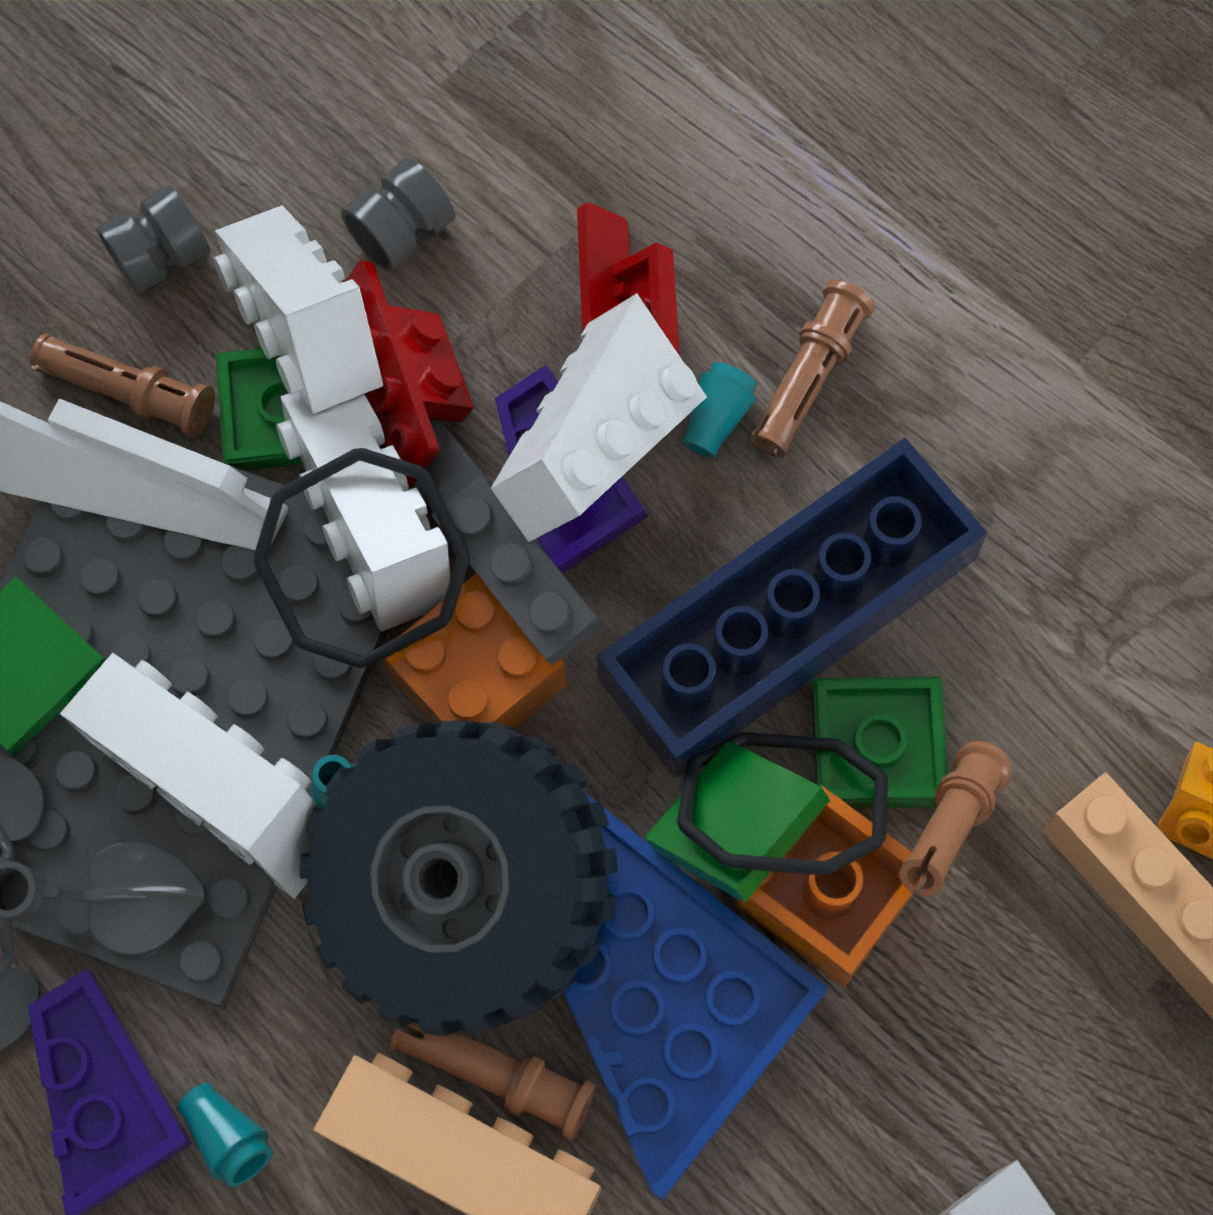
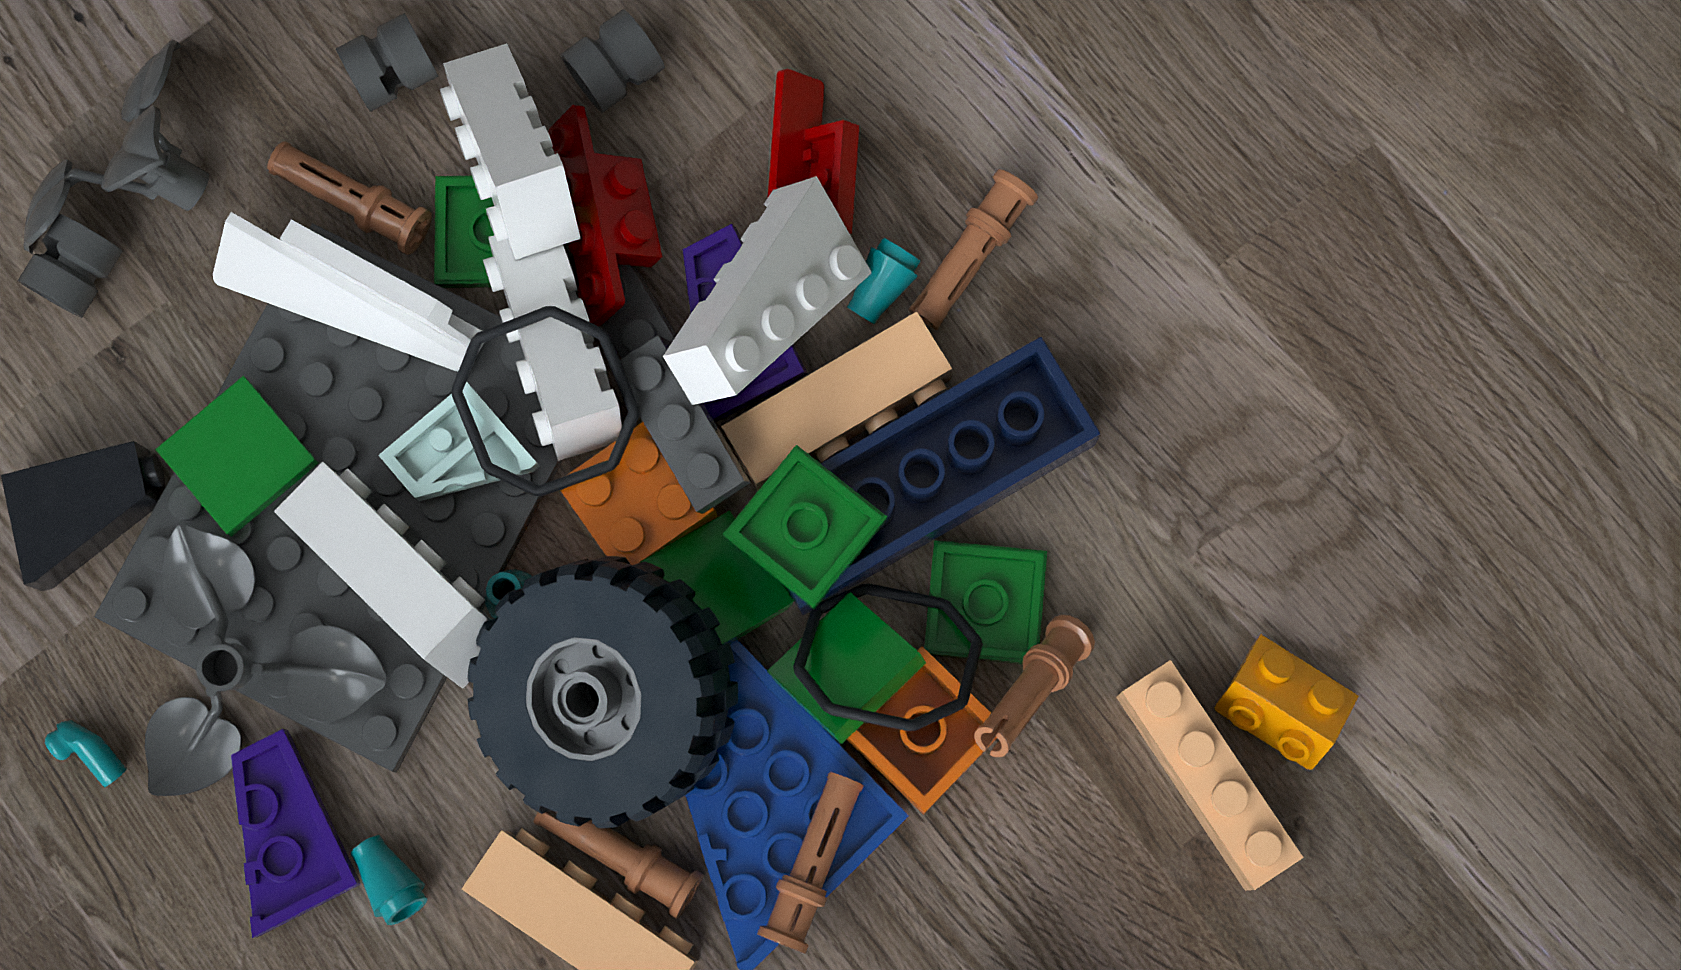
camera: 10 degrees right, 10 degrees up
(247, 639) = (438, 454): none -> light aqua wing
(589, 736) = (723, 579): none -> green tile
(670, 666) = (805, 526): none -> green tile
(688, 536) = (841, 399): none -> light nougat brick
(718, 1083) = (802, 895): none -> nougat pin

